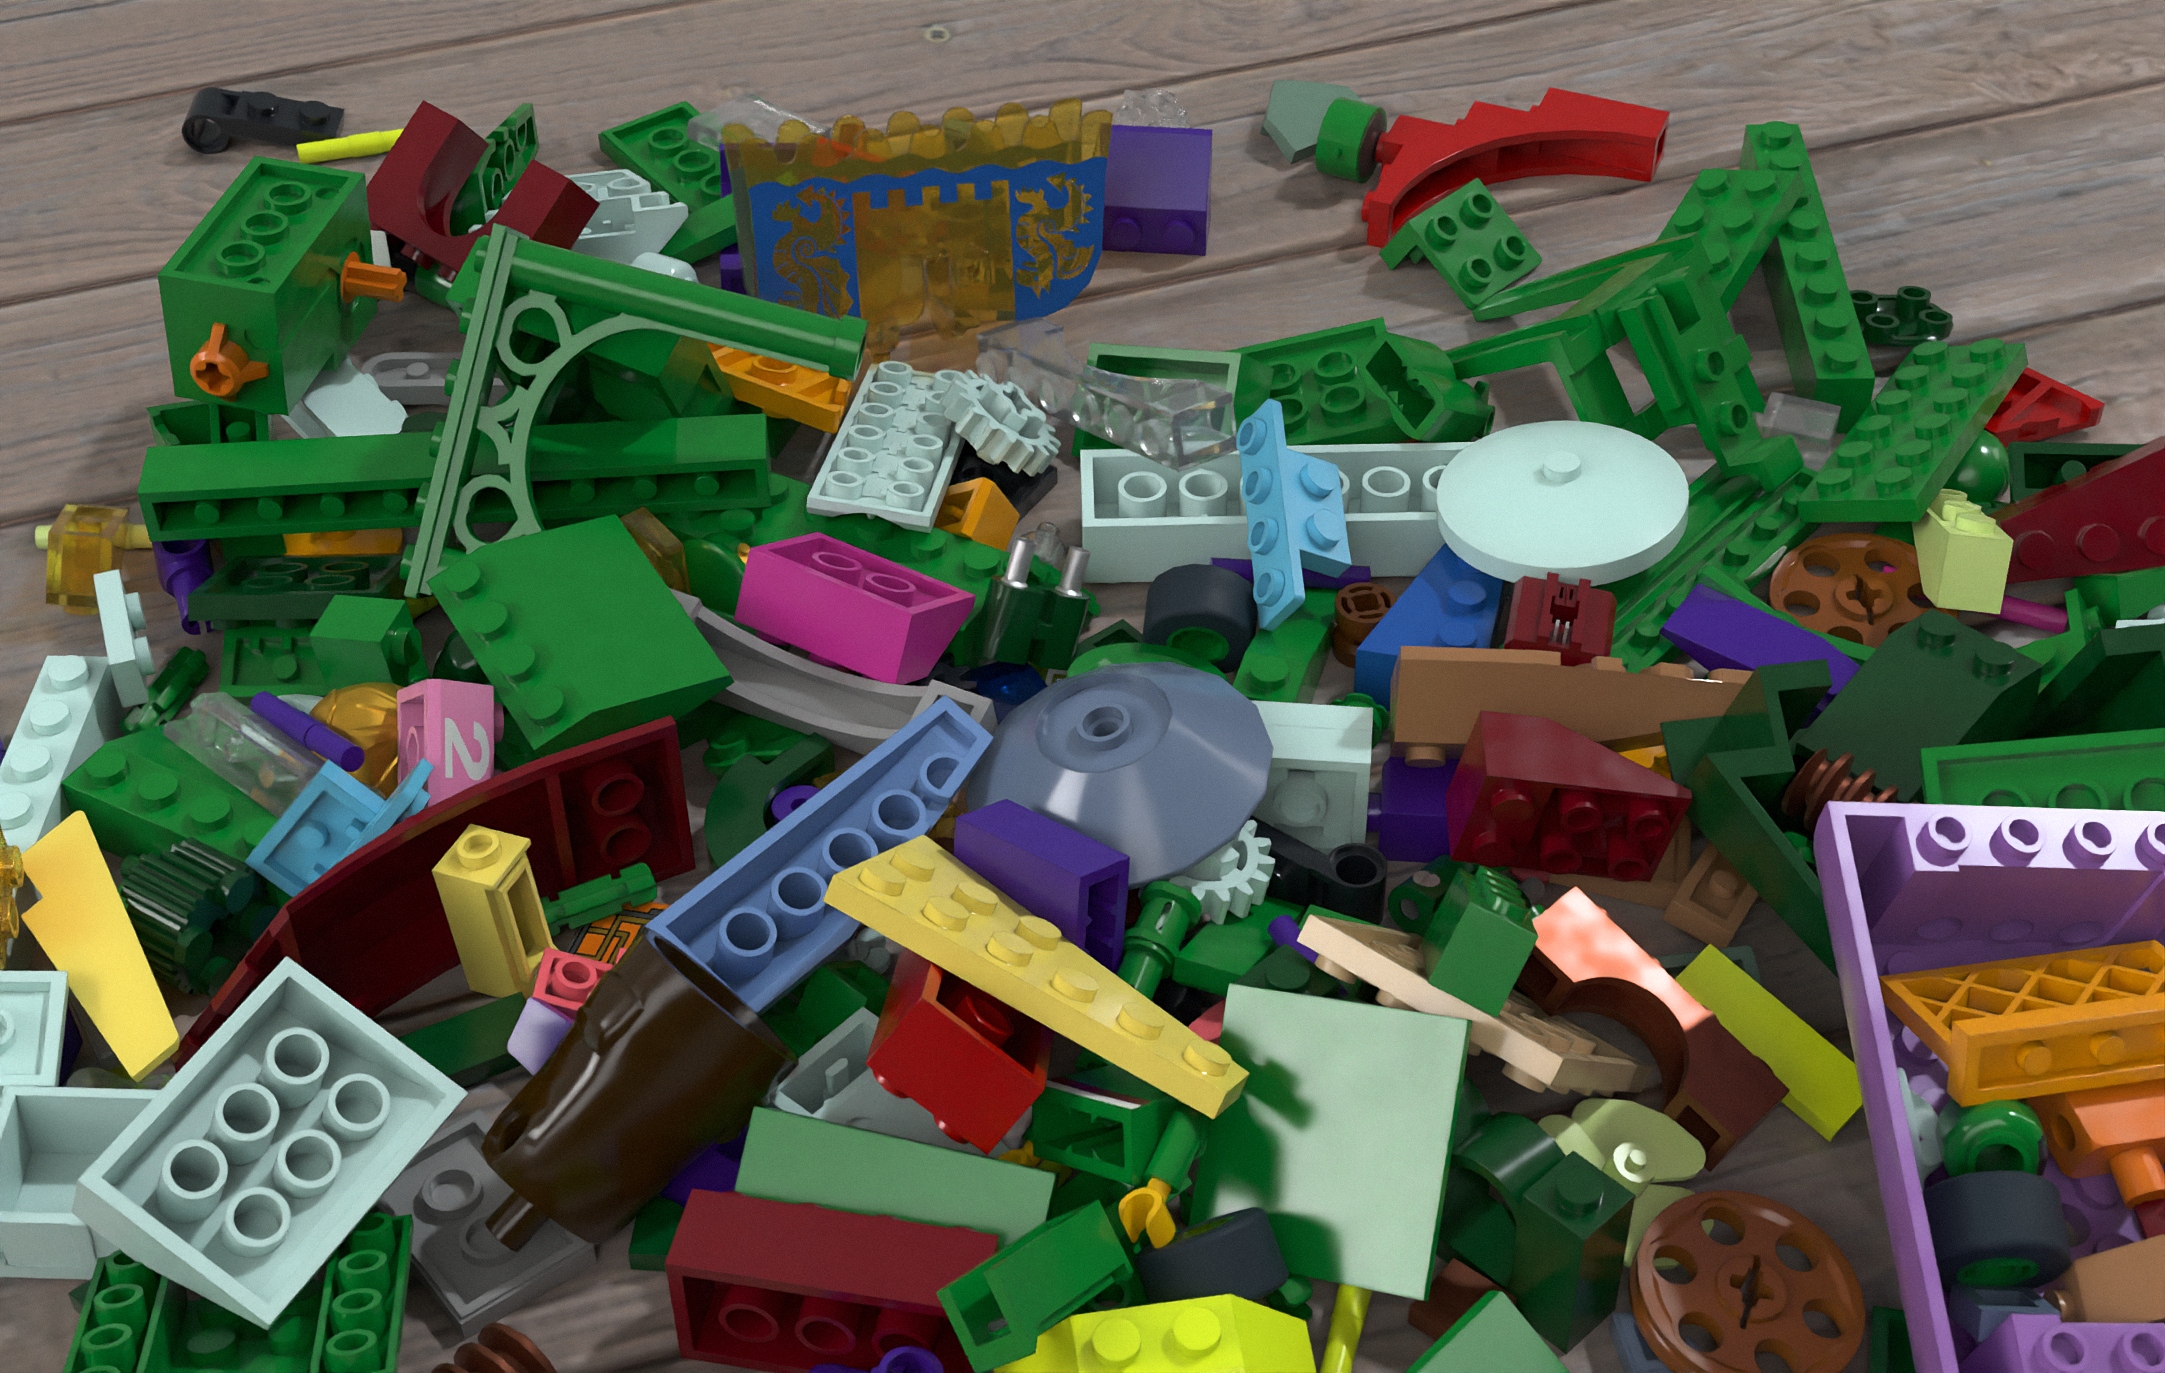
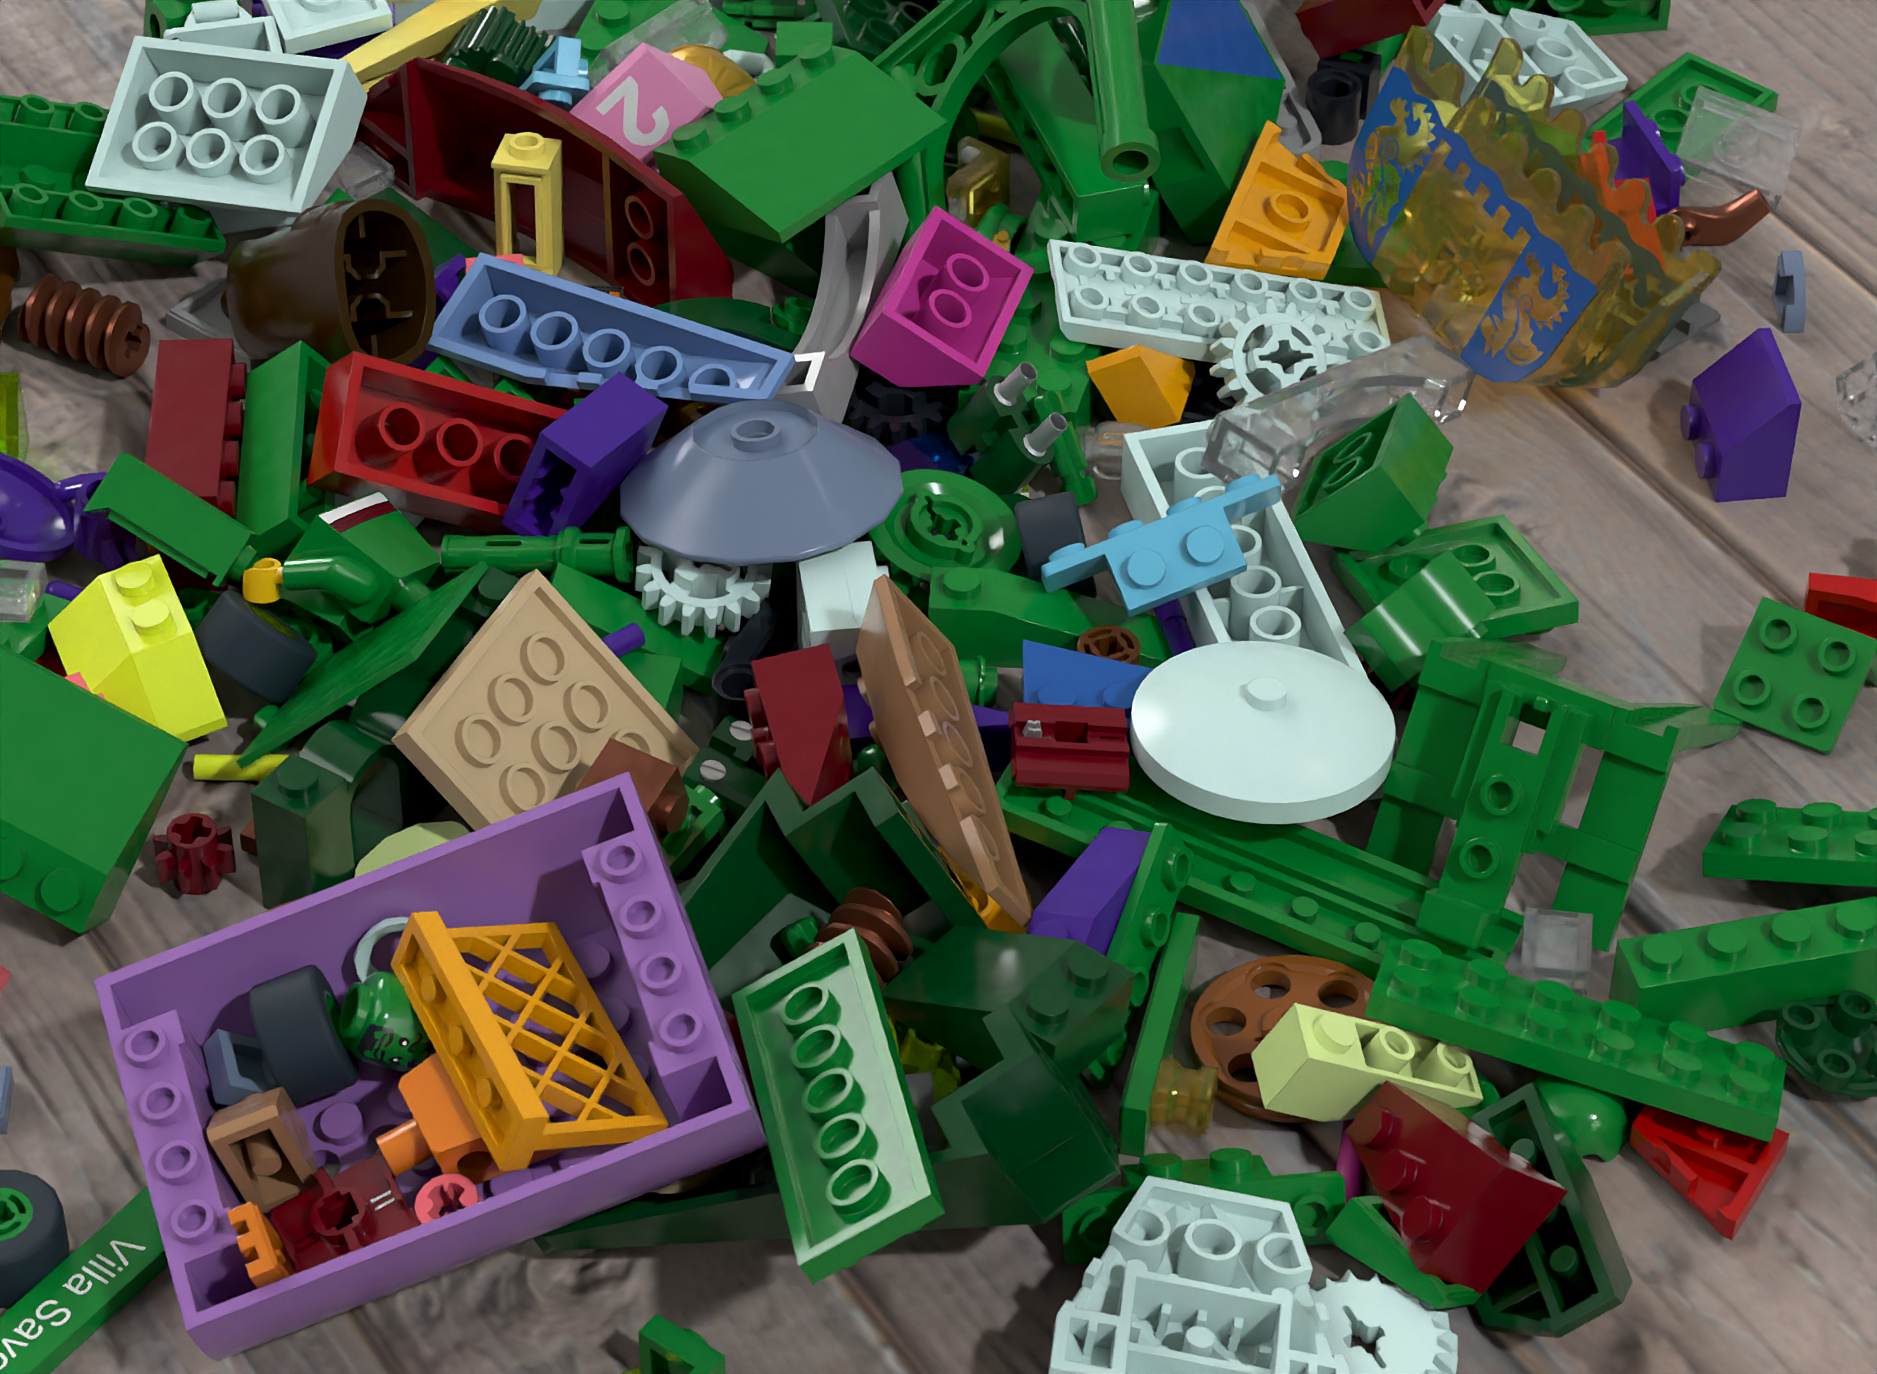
camera: 75 degrees right, 0 degrees up
(308, 731) = (670, 38): dark purple piece -> none
(599, 898) = (593, 271): green axle -> none
(986, 938) = (463, 437): light yellow wing -> none
(1479, 939) = (575, 696): green brick -> none

